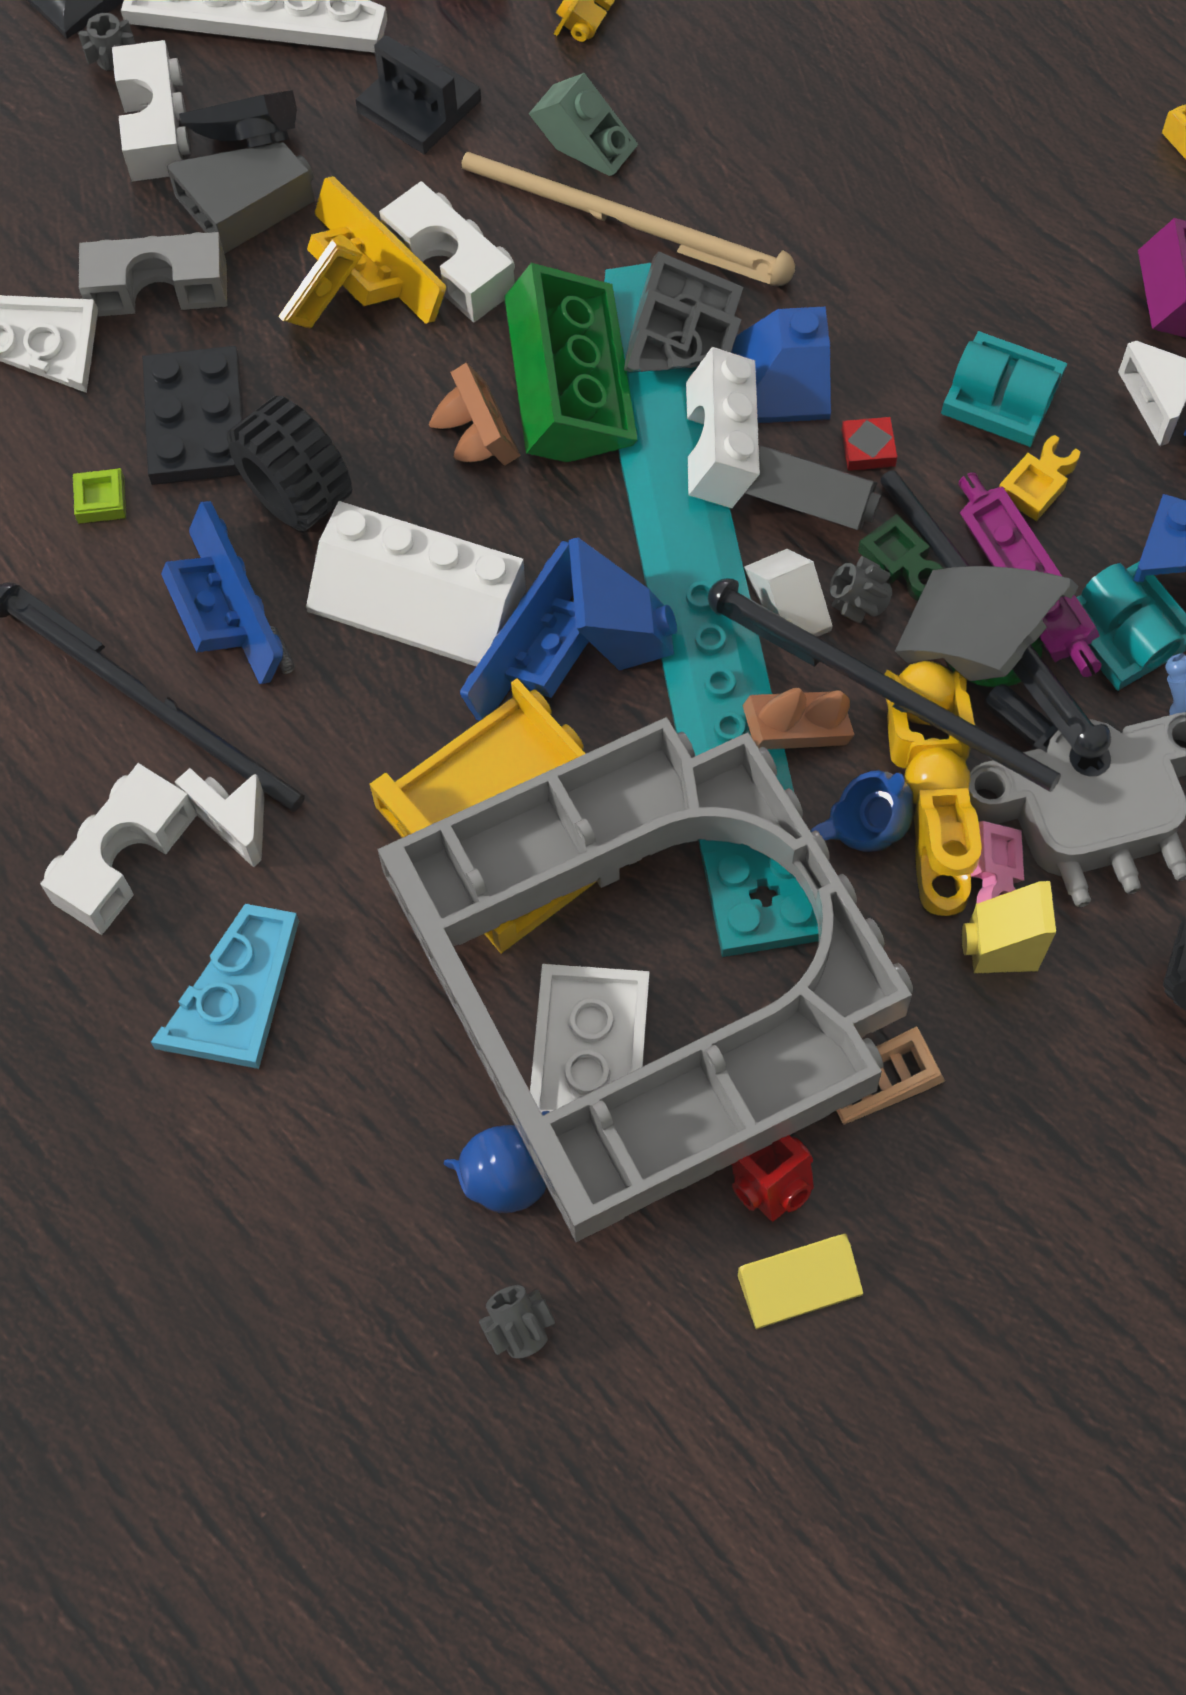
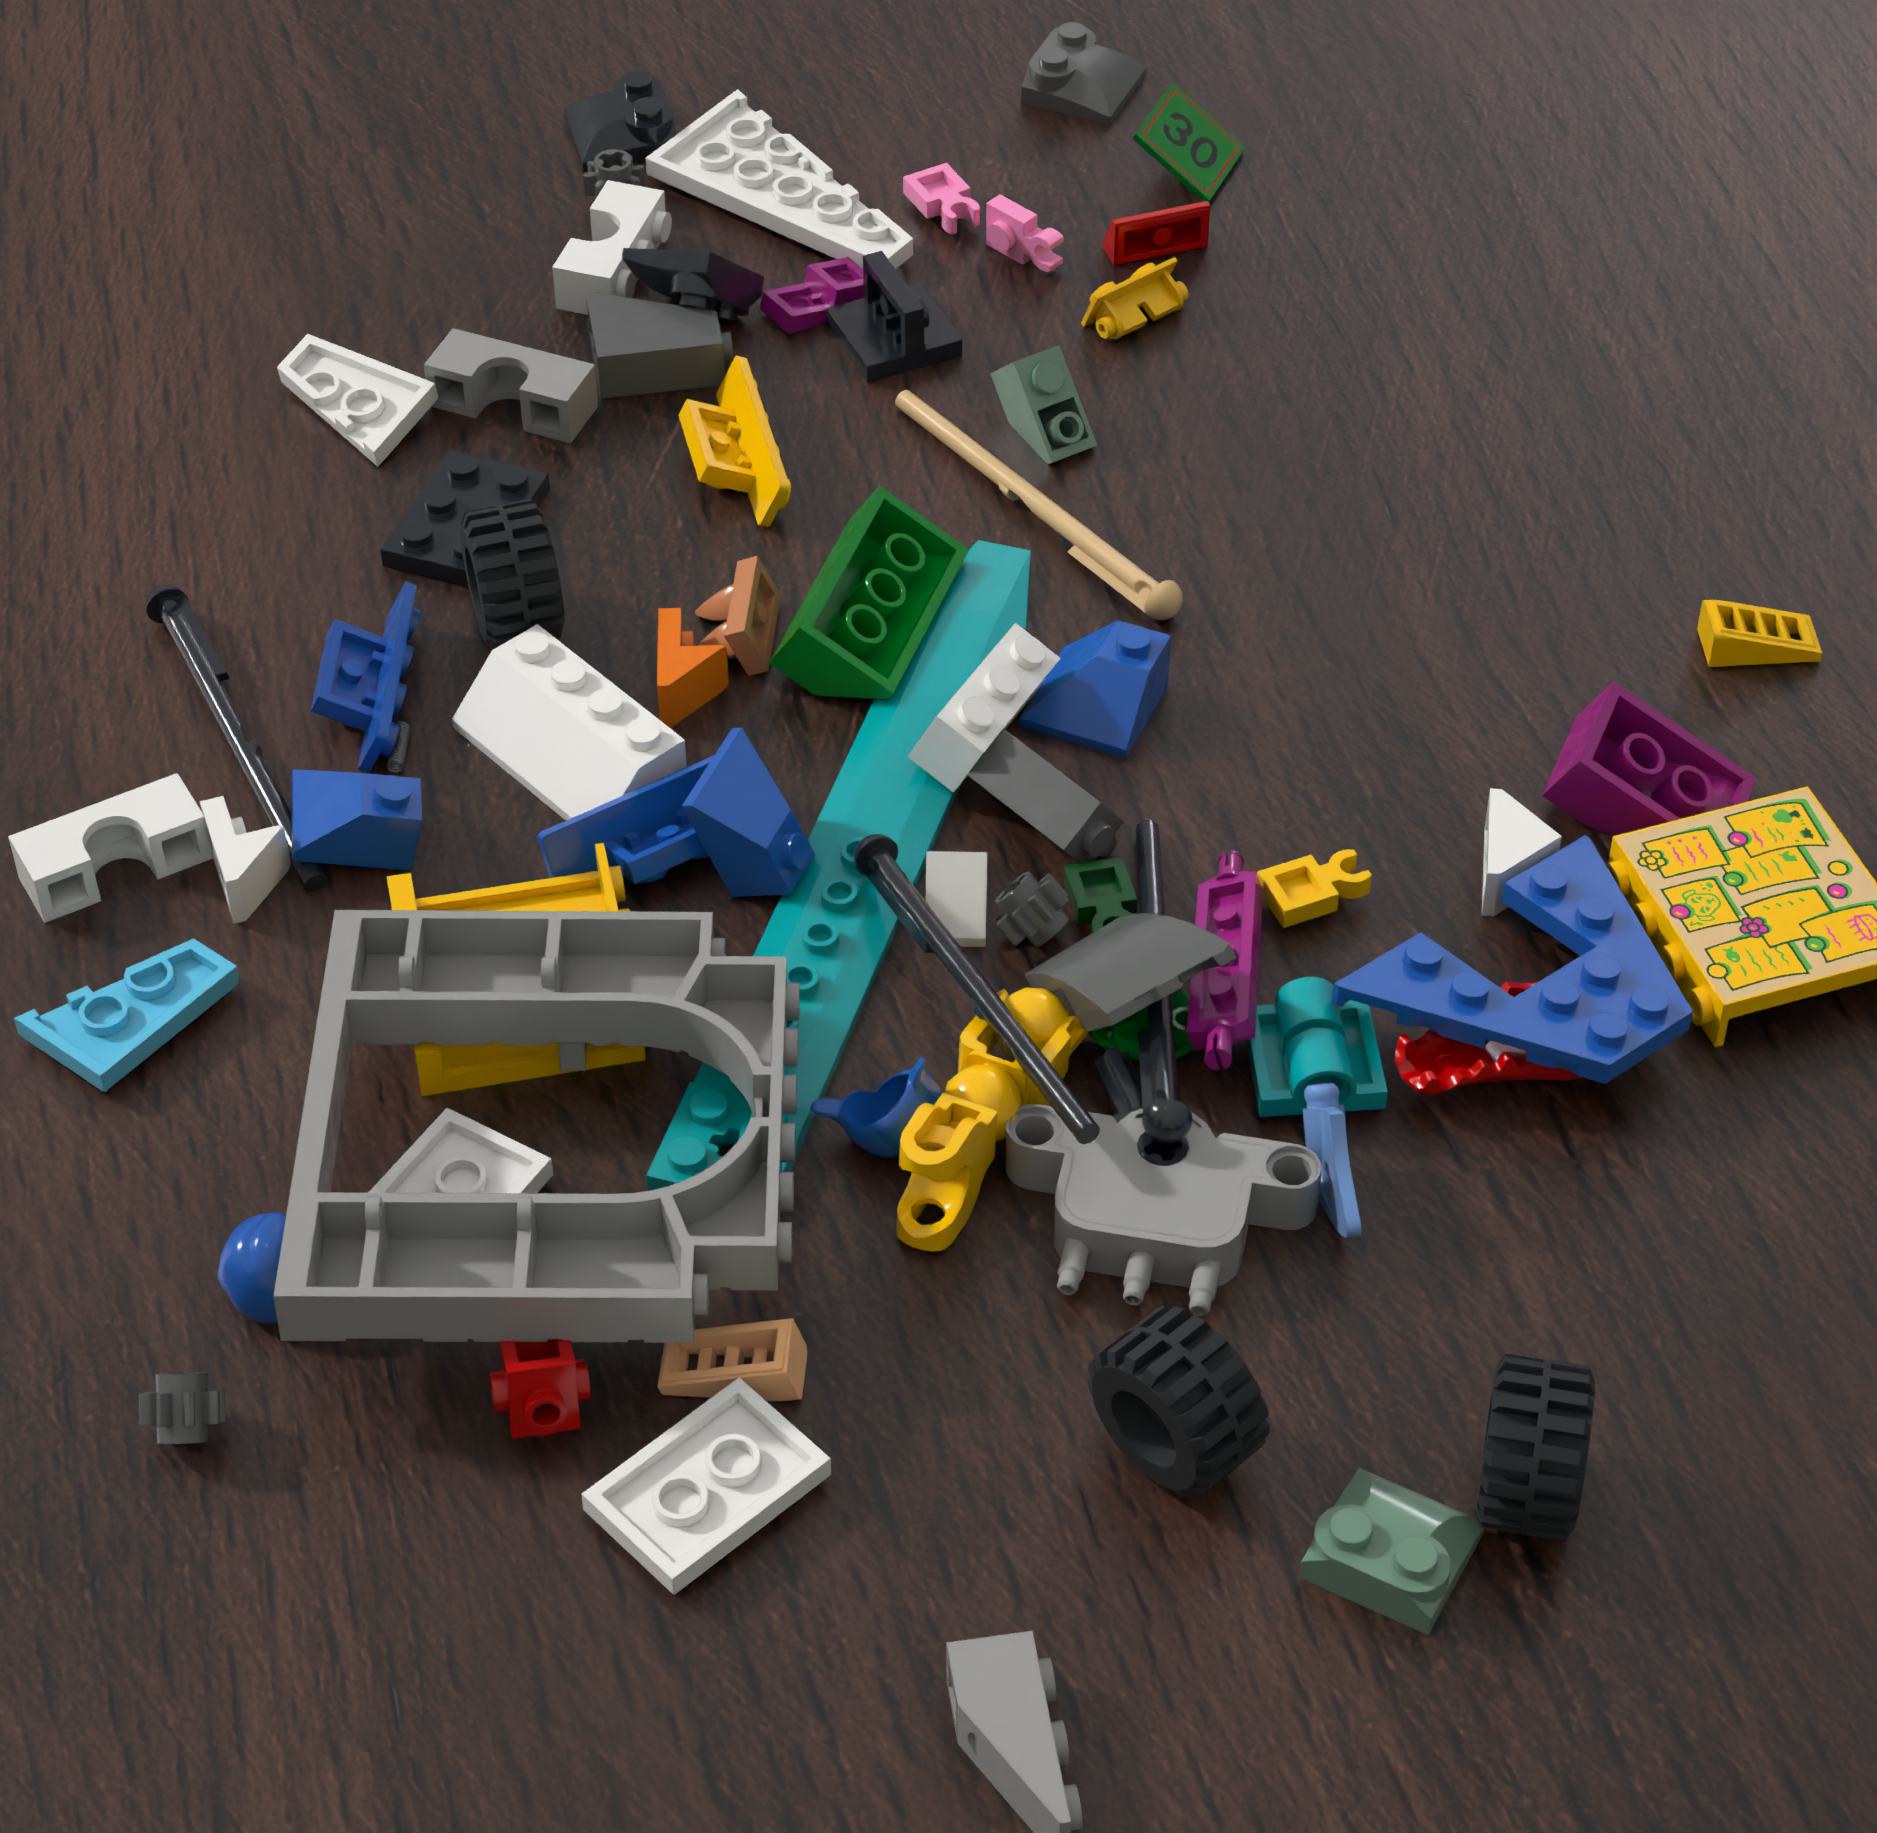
camera: 25 degrees right, 20 degrees down
(99, 495) = (322, 554): lime tile -> none
(298, 732) = (355, 818): none -> blue slope
(322, 283) = (664, 440): yellow slope -> none
(341, 81) = (805, 304): none -> magenta slope
(428, 226) = (827, 465): white arch -> none
(462, 490) = (685, 672): none -> orange slope
(681, 317) = (1020, 587): dark grey slope -> none
(799, 719) = (879, 1001): nougat tile -> none
(800, 1281) = (504, 1505): light yellow slope -> none
(869, 443) = (1147, 791): red tile -> none
(934, 1190) = (706, 1485): none -> white plate
(999, 861) = (1002, 1214): bright pink plate -> none
(1003, 388) = (1330, 788): teal plate -> none
(1011, 930) = (961, 1275): light yellow slope -> none

